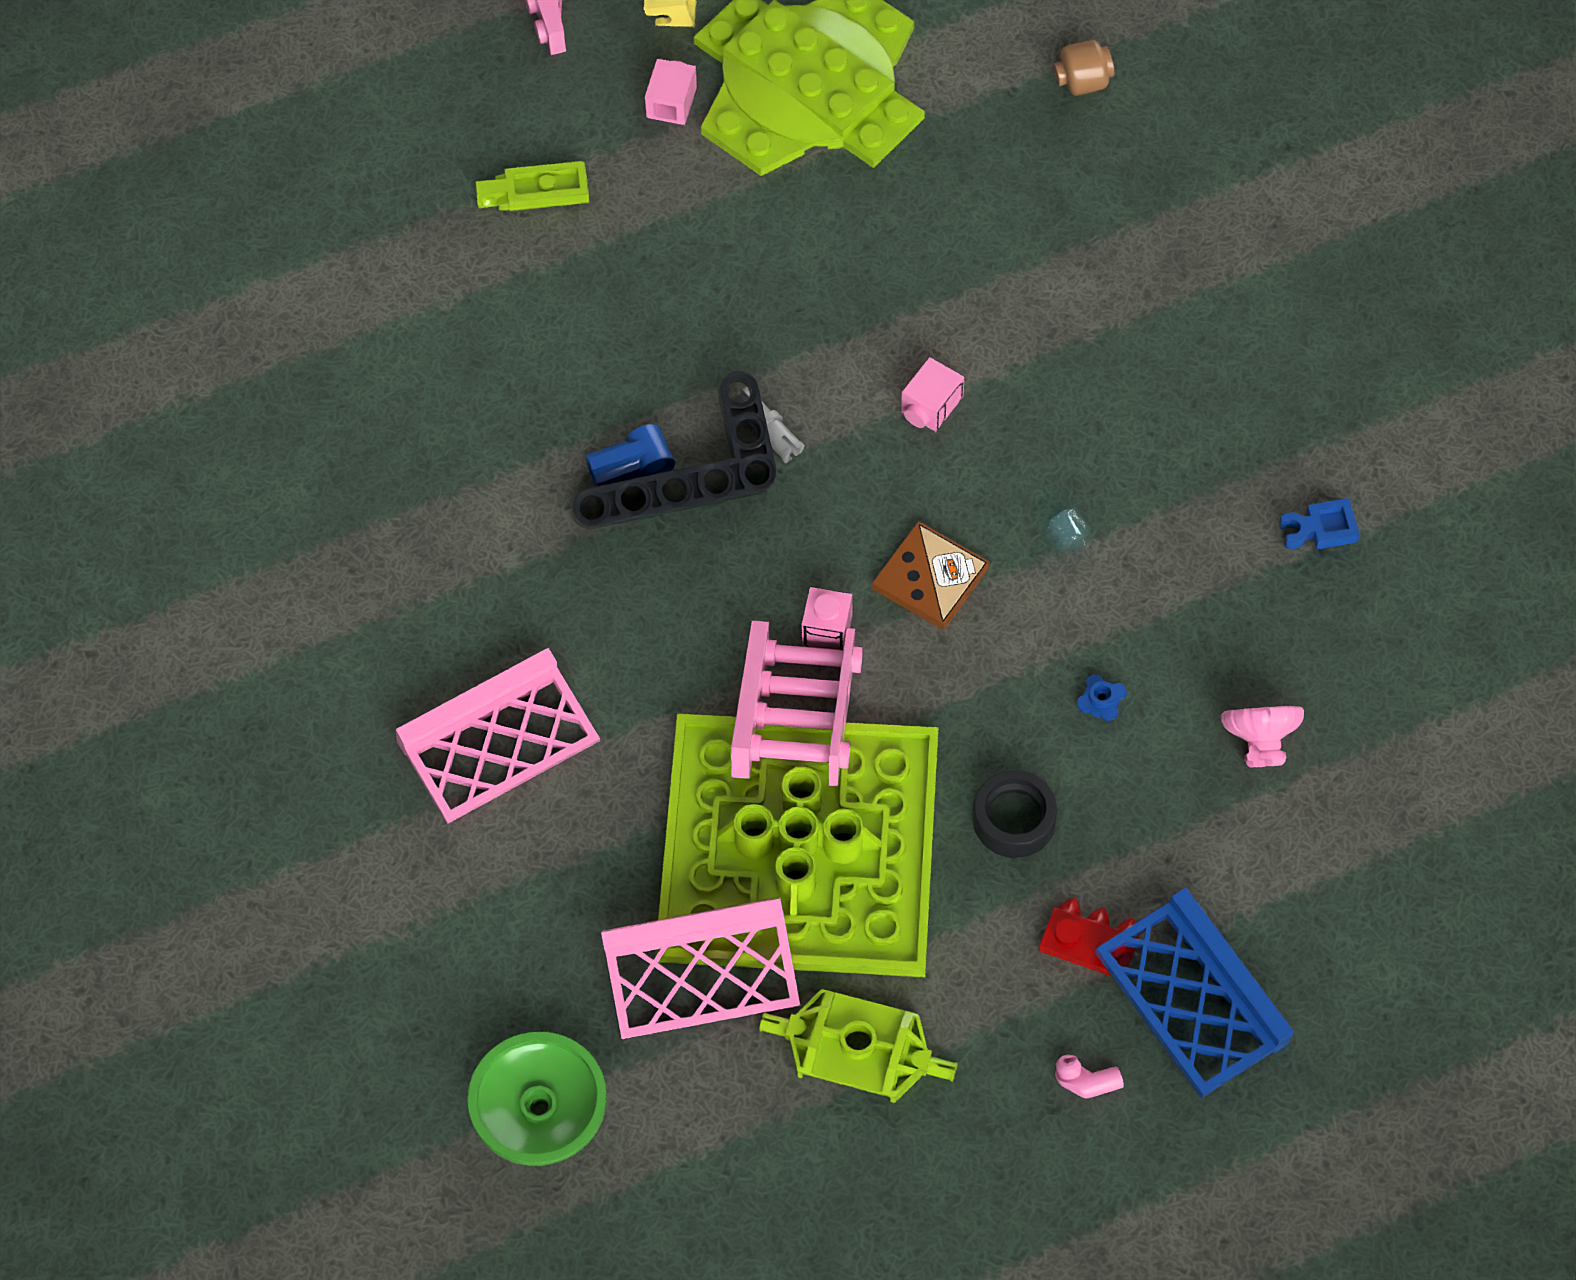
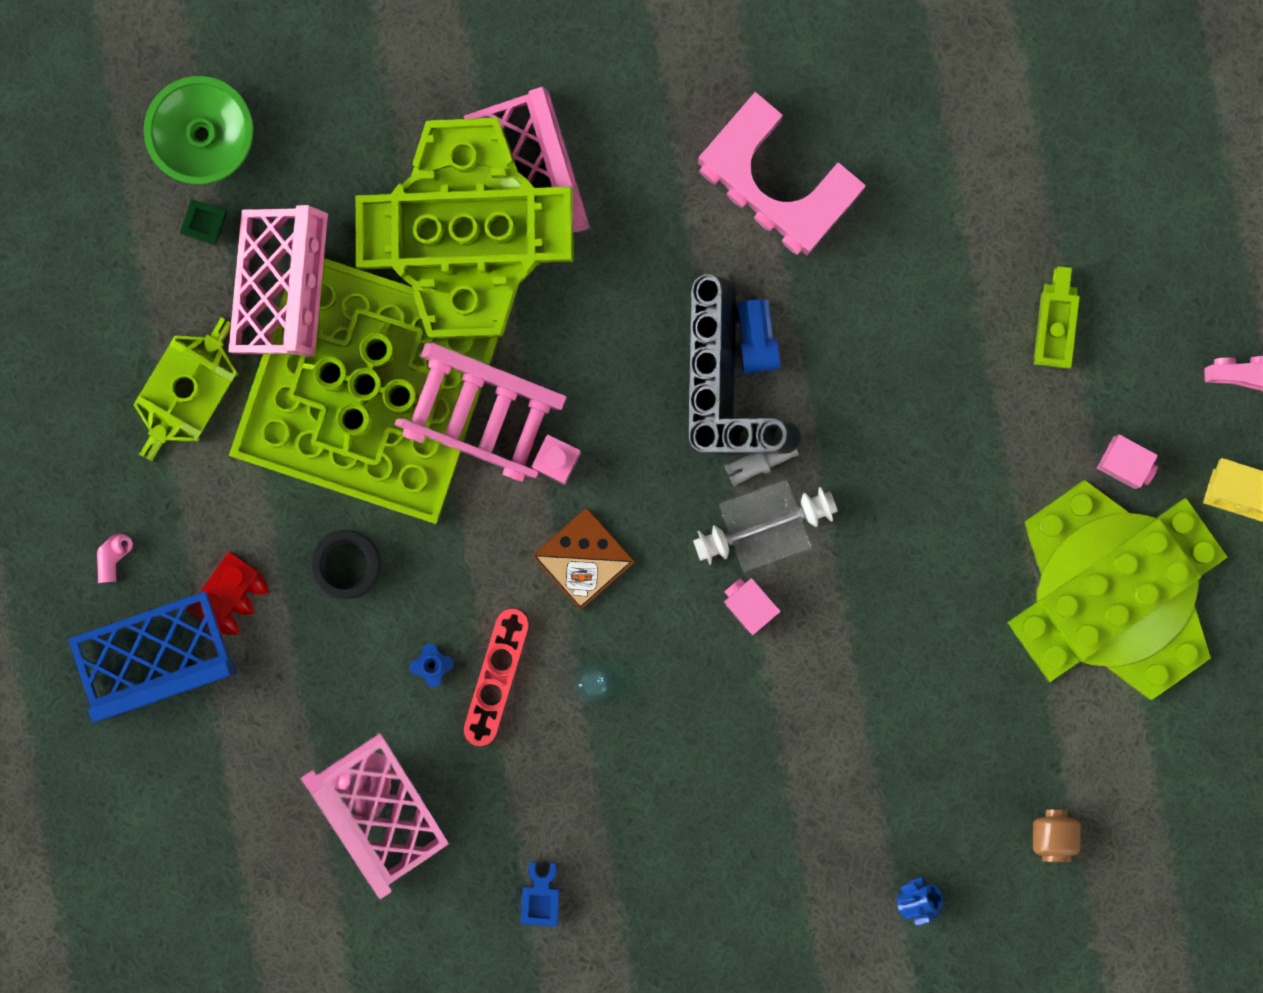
camera: 100 degrees right, 25 degrees up
(438, 527) = (800, 221): none -> bright pink arch
(584, 772) = (464, 228): none -> lime plate
(648, 1075) = (203, 222): none -> dark green plate
(839, 404) = (765, 526): none -> clear plate
(1092, 623) = (500, 678): none -> coral beam
(1195, 170) = (920, 901): none -> blue gear
(1316, 711) = (346, 825): none -> bright pink fence

